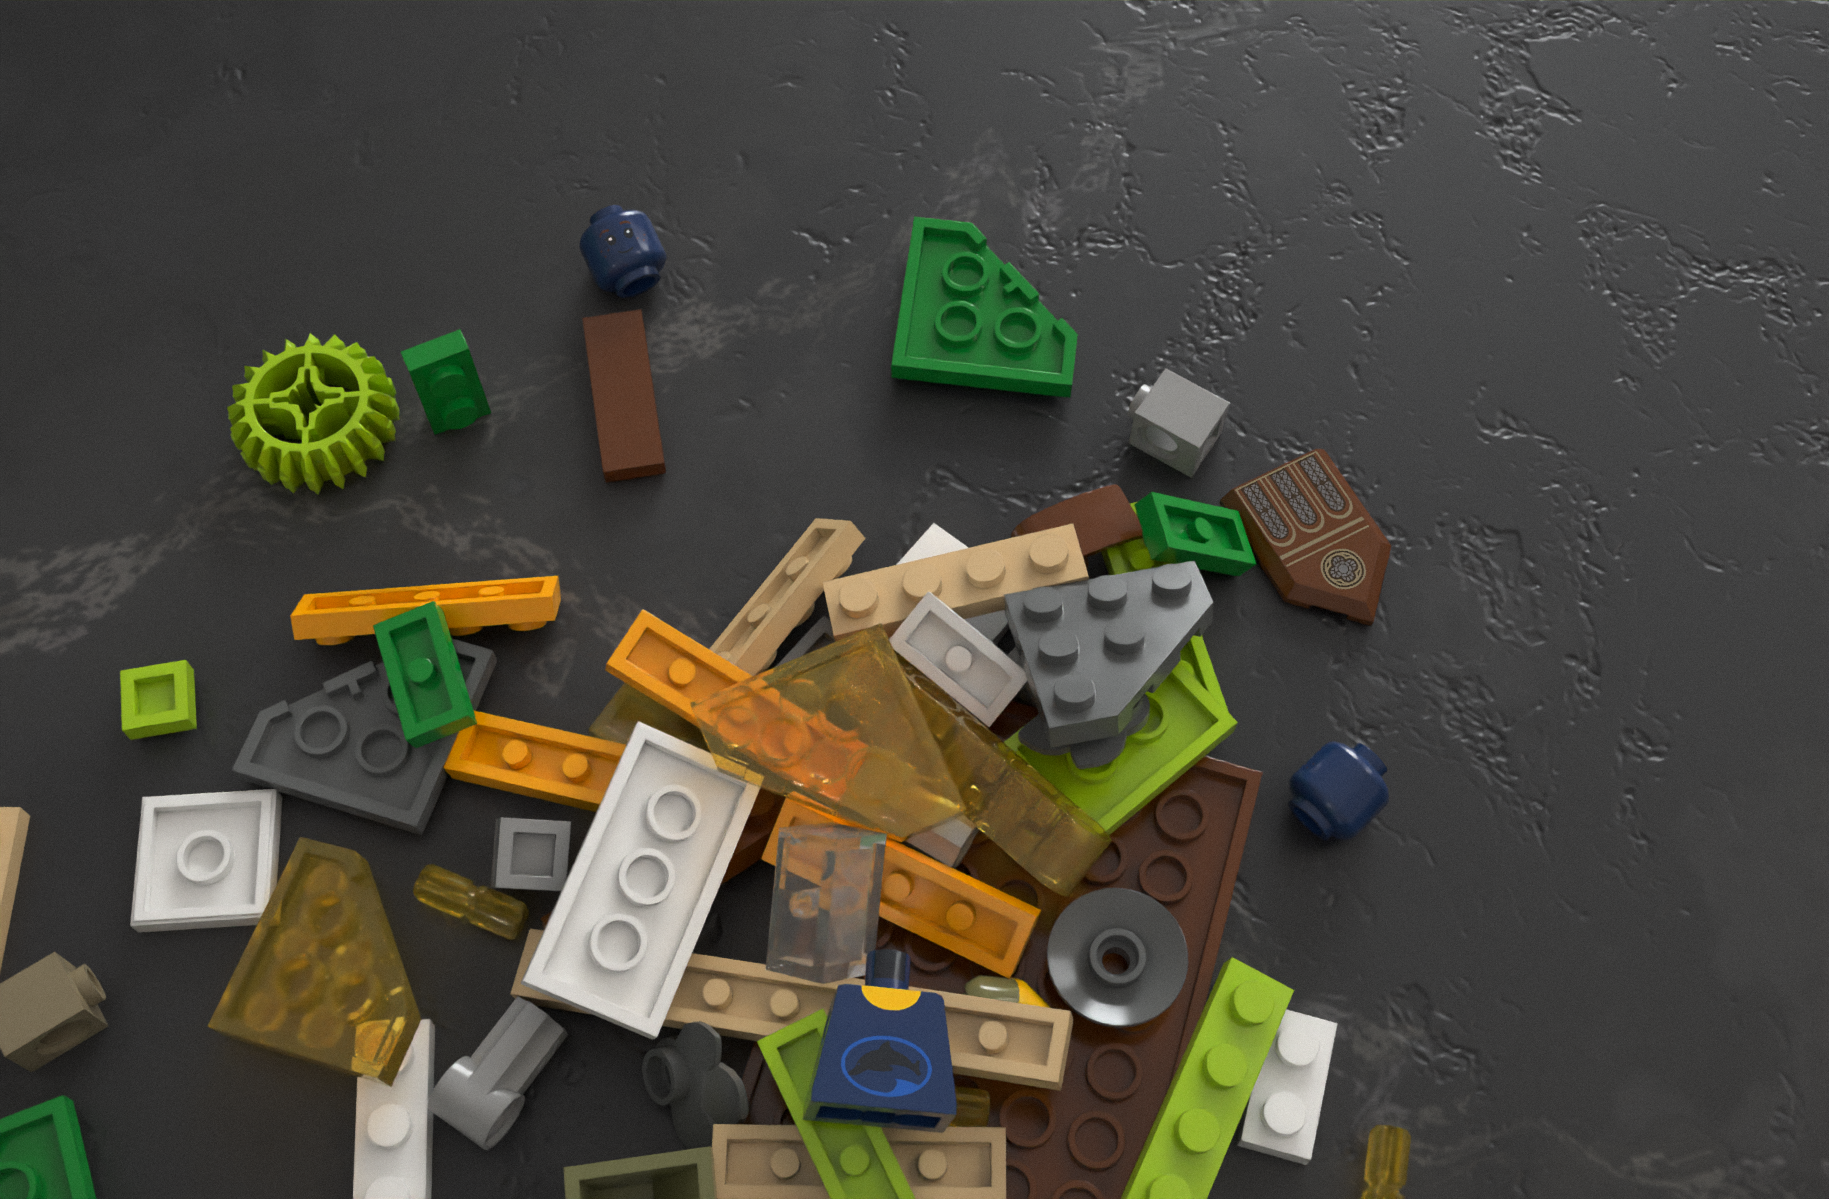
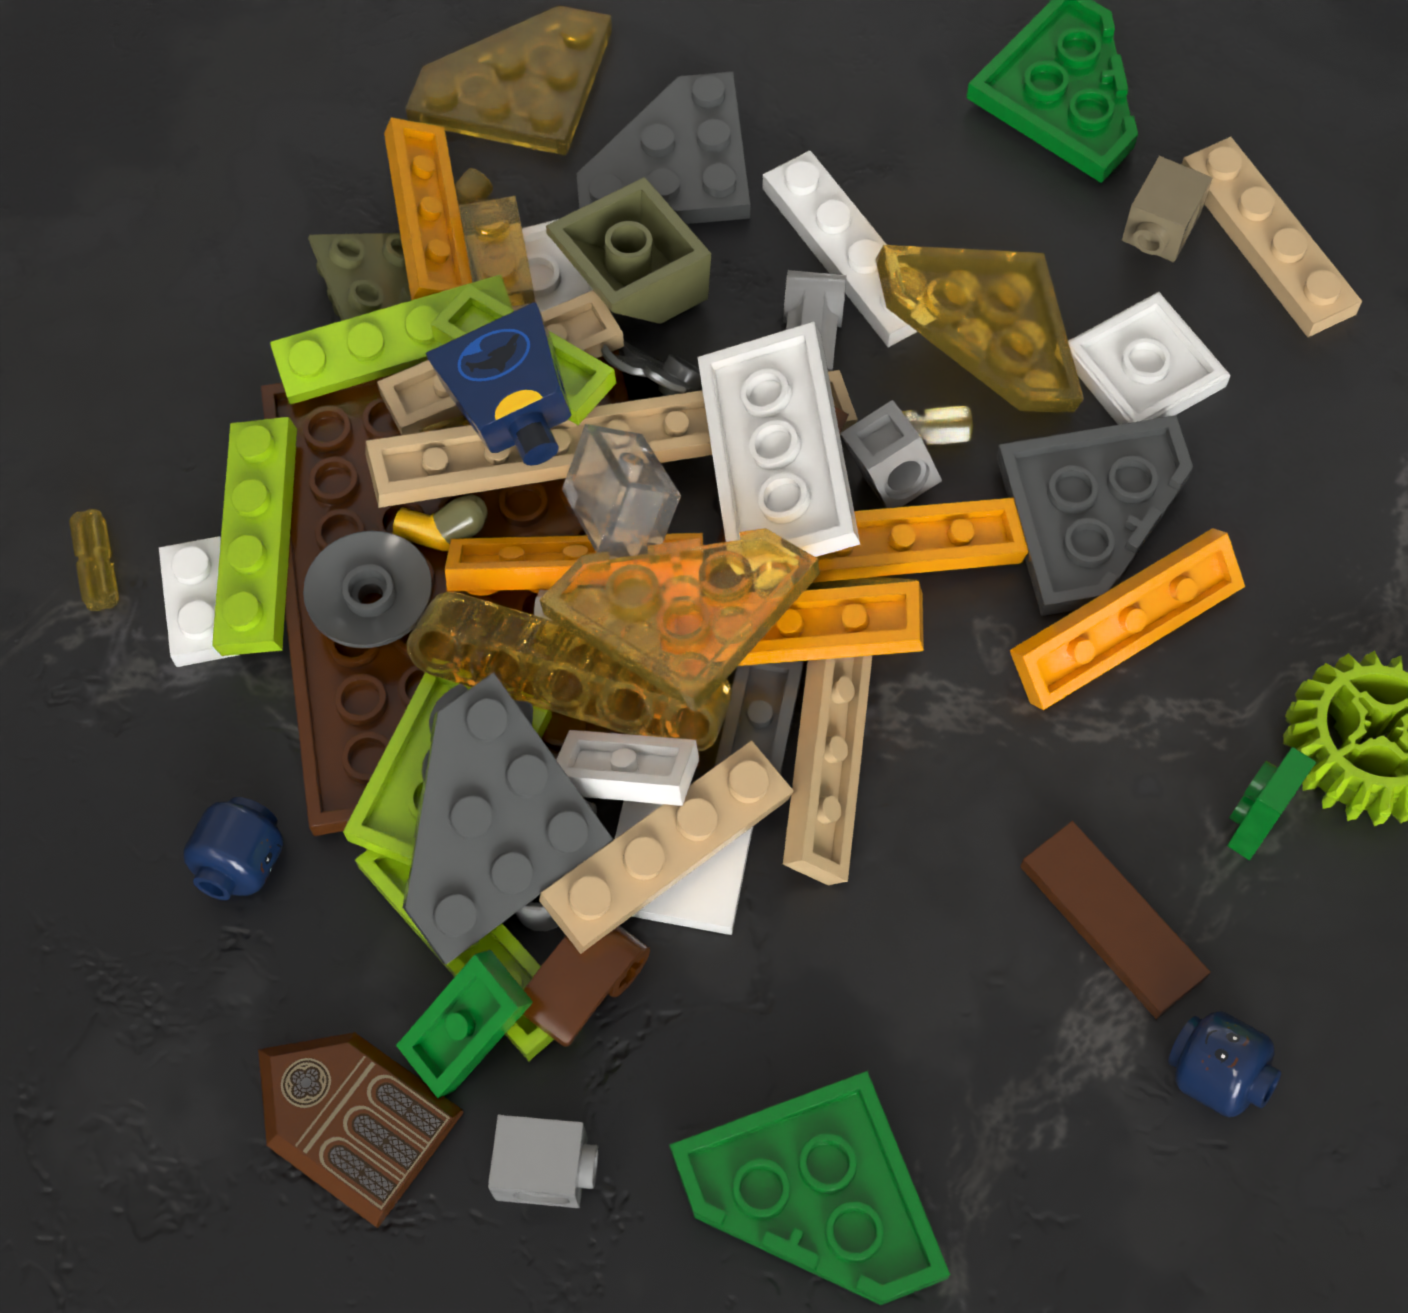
camera: 155 degrees right, 0 degrees up
(158, 699) = (1283, 444): lime plate -> none
(424, 675) = (1077, 539): green plate -> none

